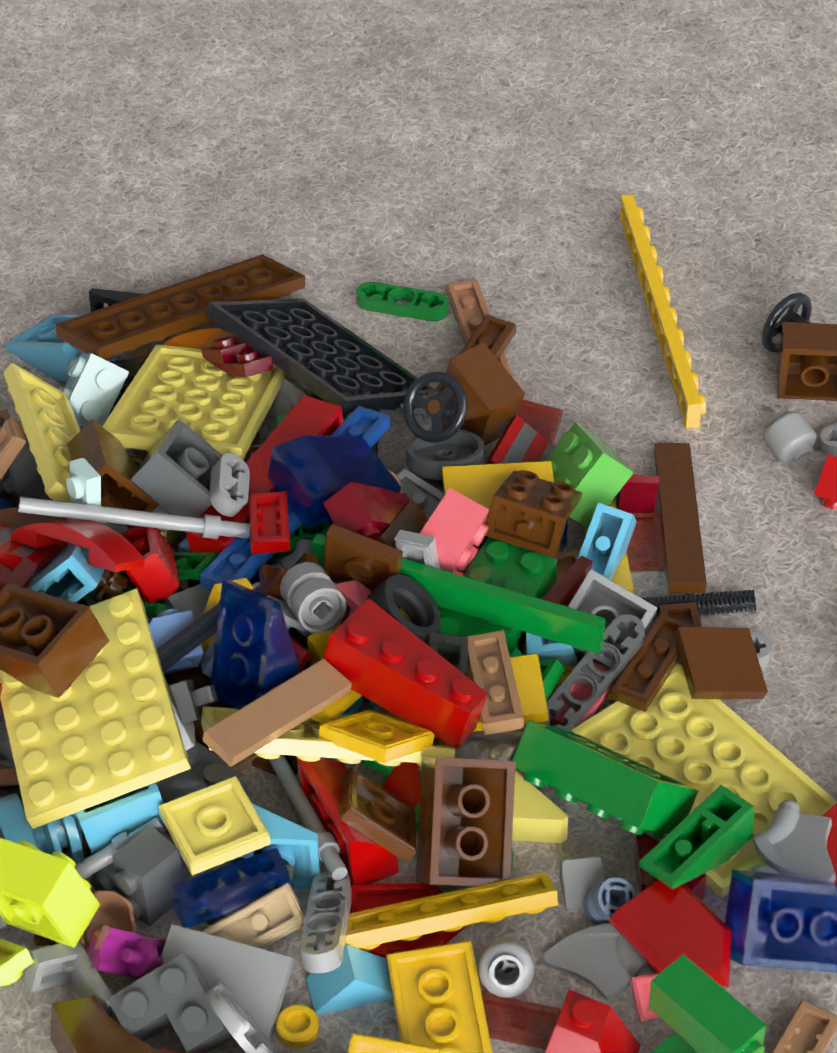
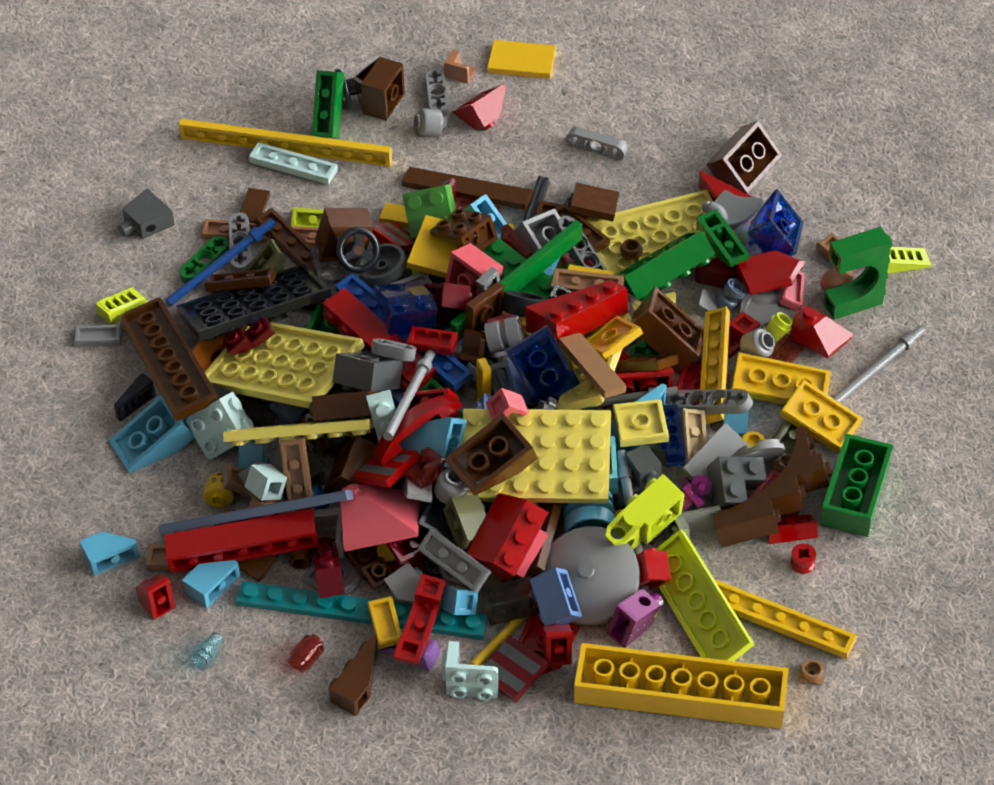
camera: 70 degrees left, 5 degrees up
(140, 626) = (506, 403): none -> coral panel
(224, 247) = (98, 335): none -> light grey tile
(269, 242) = (111, 316): none -> neon yellow slope
(369, 338) = (240, 280): none -> reddish brown tile
(420, 355) = (267, 258): none -> olive slope
(426, 336) = (234, 235): none -> light grey beam
(448, 321) = (254, 235): none -> blue bar
(449, 223) = (146, 216): none -> dark grey torso
(529, 316) = (255, 203): none -> reddish brown tile
(534, 378) = (306, 217): none -> neon yellow slope
(544, 936) = (737, 328): none -> red slope
(554, 982) = (779, 325): none -> neon yellow cone
(626, 328) = (293, 163): none -> light aqua plate
(637, 737) = (631, 249): none -> reddish brown plate
(733, 309) = (327, 104): none -> green brick

